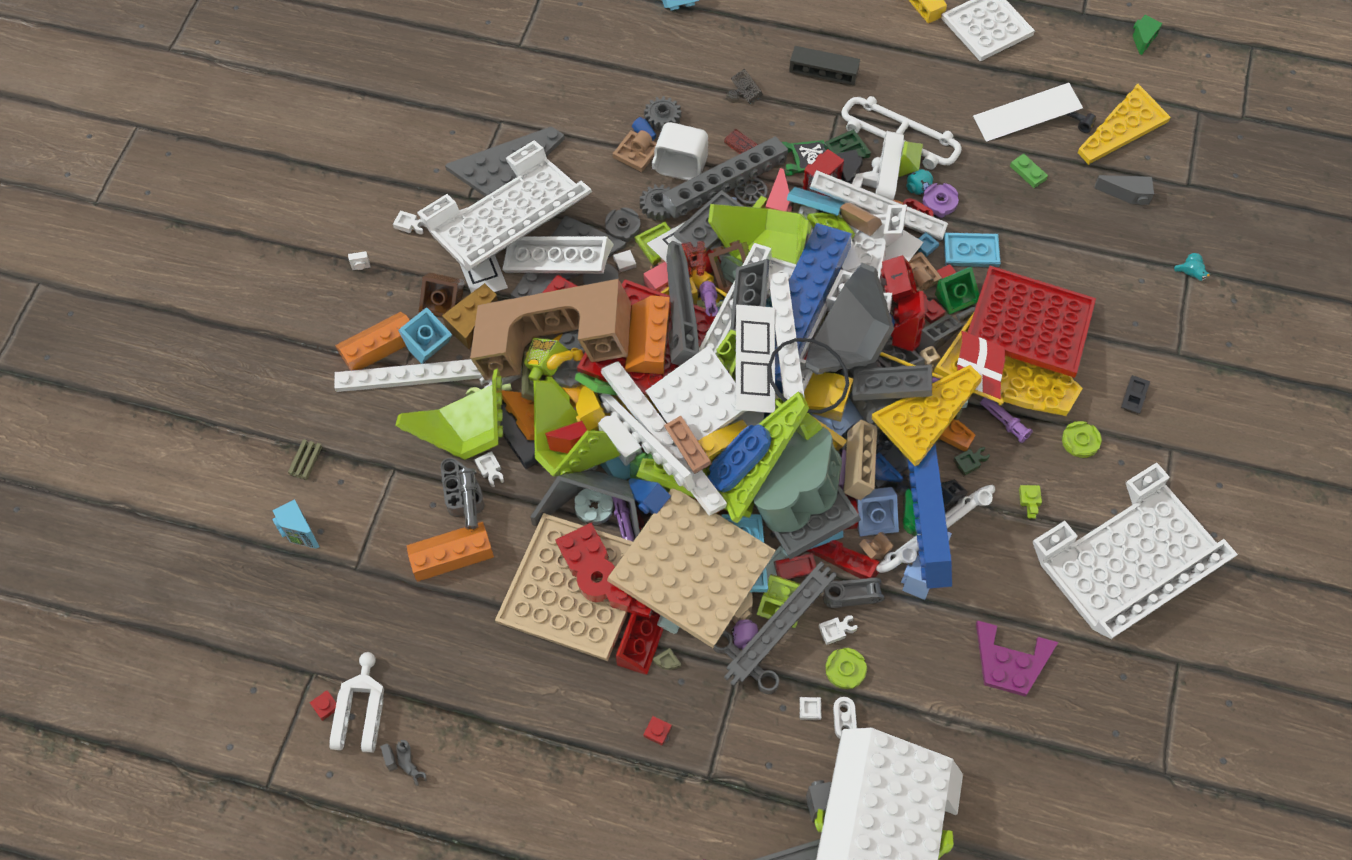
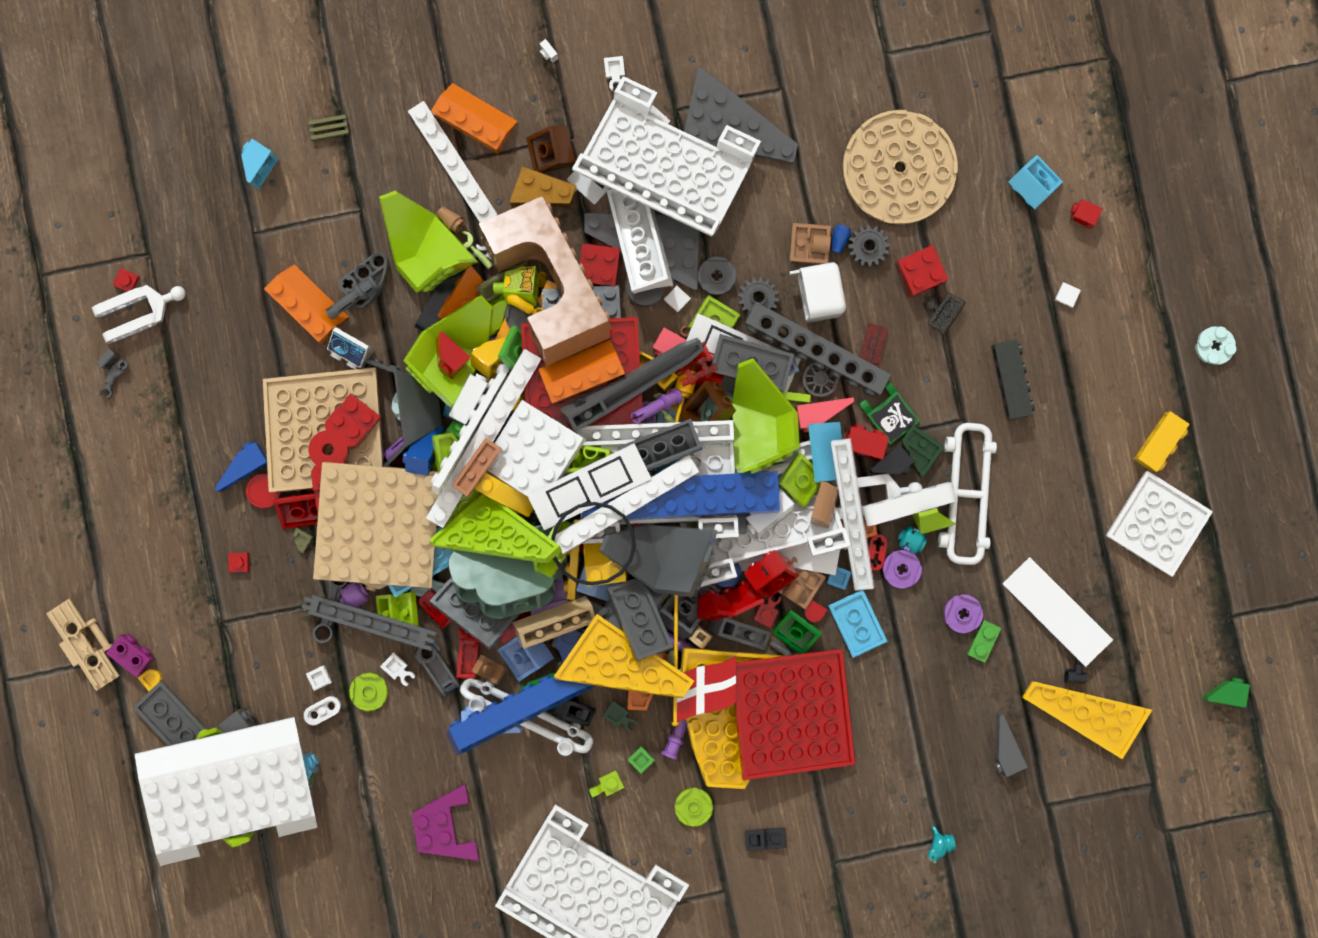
camera: 65 degrees right, 25 degrees up
(424, 335) = (494, 163): medium azure slope -> none
(449, 396) = (452, 220): none -> medium nougat cone
(489, 467) = (400, 293): white plate -> none
(512, 526) = (349, 348): none -> slope
(565, 673) = (244, 464): none -> blue slope
(589, 74) = (904, 139): none -> tan plate
(600, 673) = (258, 492): none -> red piece
(703, 87) = (921, 271): none -> red piece
(739, 457) = (489, 518): blue tile -> none
(776, 11) = (1067, 295): none -> white tile
(996, 181) = (972, 607): none -> medium lavender plate
(1019, 460) = (641, 759): none -> bright green plate

